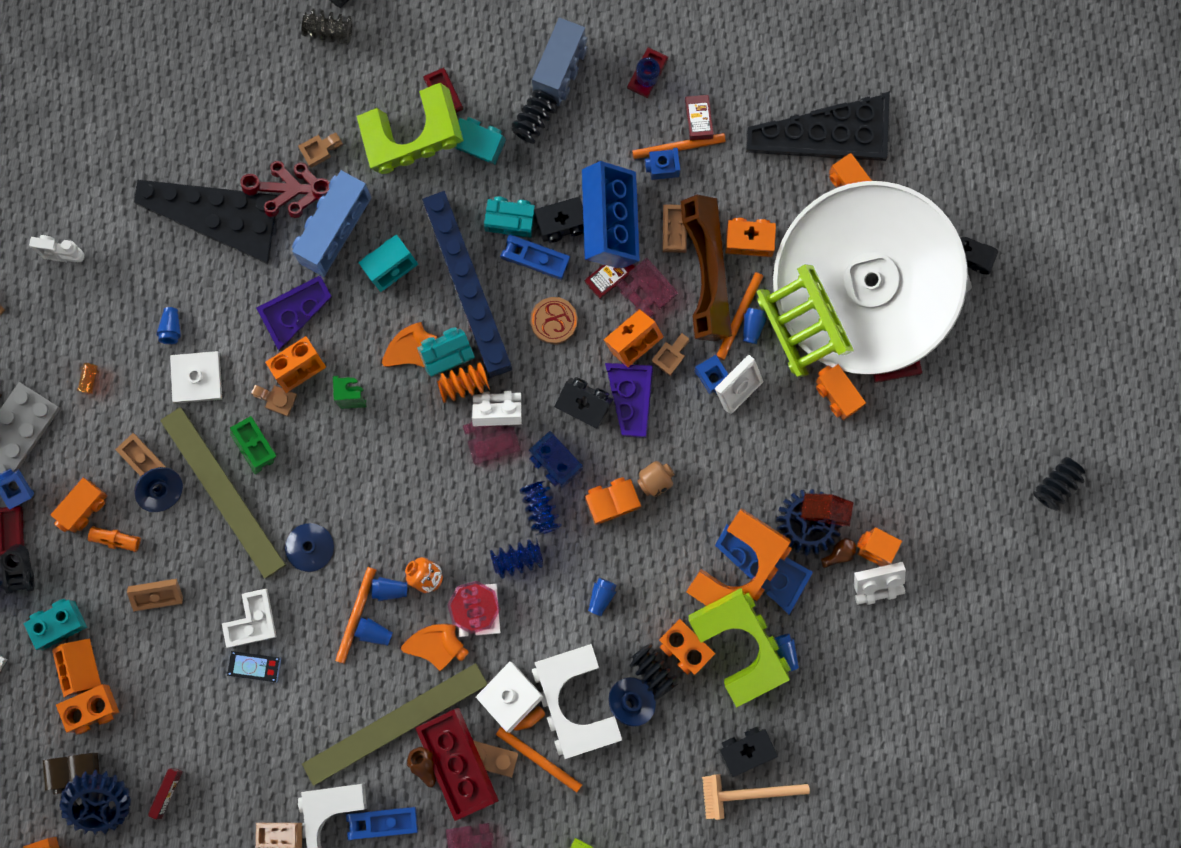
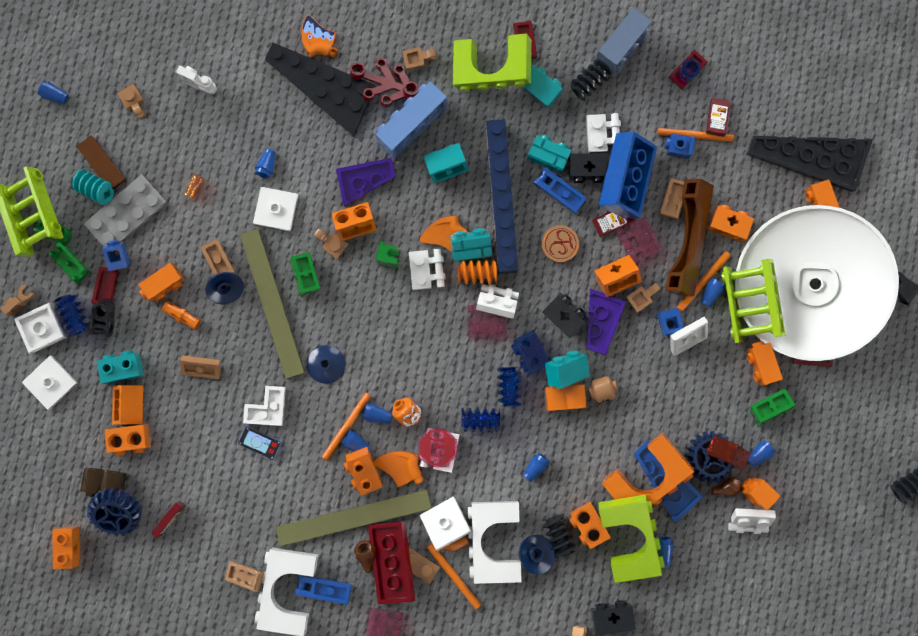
camera: 15 degrees right, 5 degrees up
(191, 161) = (317, 39): none -> orange arm
(391, 662) = (363, 471): none -> orange brick
(394, 401) = (420, 269): none -> white plate
(560, 175) = (597, 132): none -> white plate
(604, 466) = (567, 369): none -> teal brick
(864, 441) = (772, 407): none -> green hinge
(868, 500) = (761, 453): none -> blue cone

